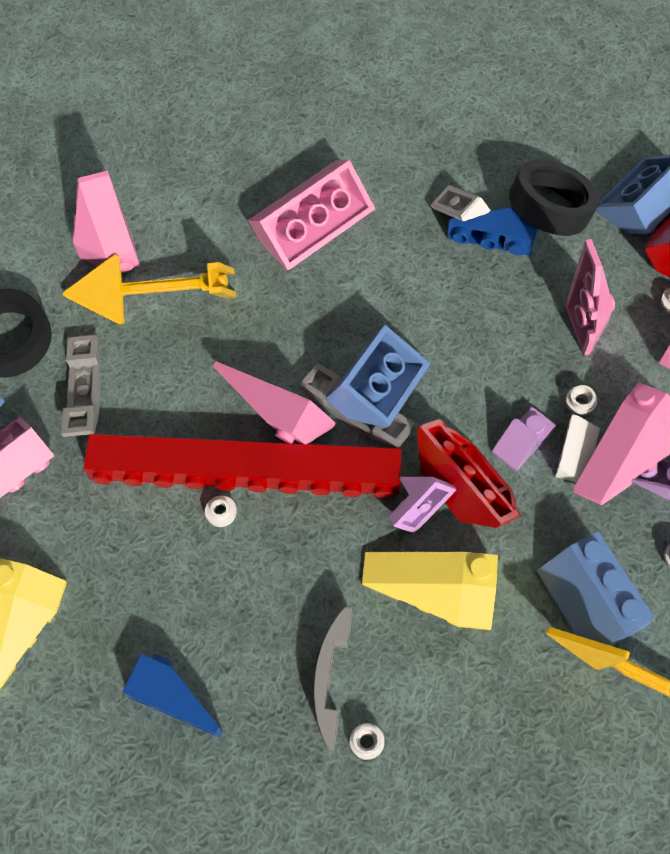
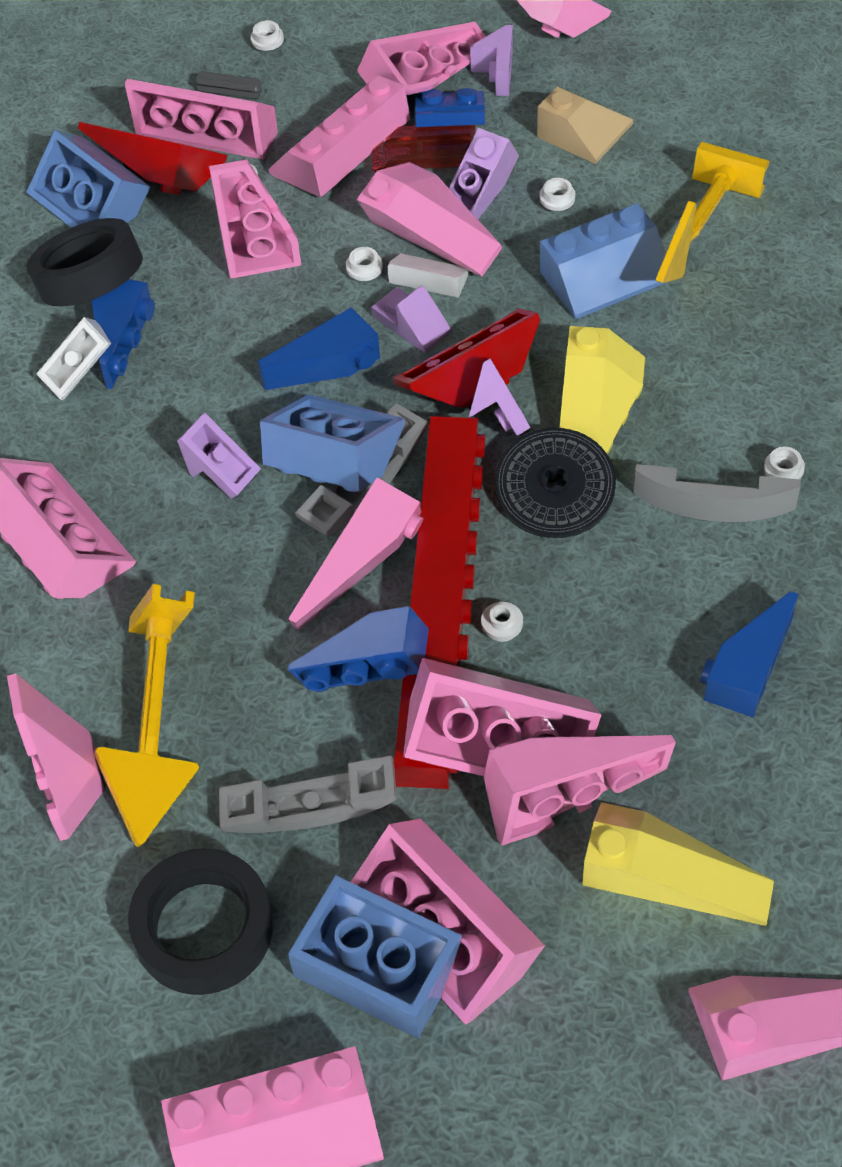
camera: 90 degrees left, 10 degrees down
(64, 534) = (549, 775): none -> bright pink wedge
(111, 502) = (466, 713): none -> bright pink slope
(177, 416) = (372, 649): none -> blue slope
(357, 573) = (555, 511): none -> black piece
(367, 305) = (217, 455): none -> lavender slope
(482, 380) = (322, 354): none -> blue slope

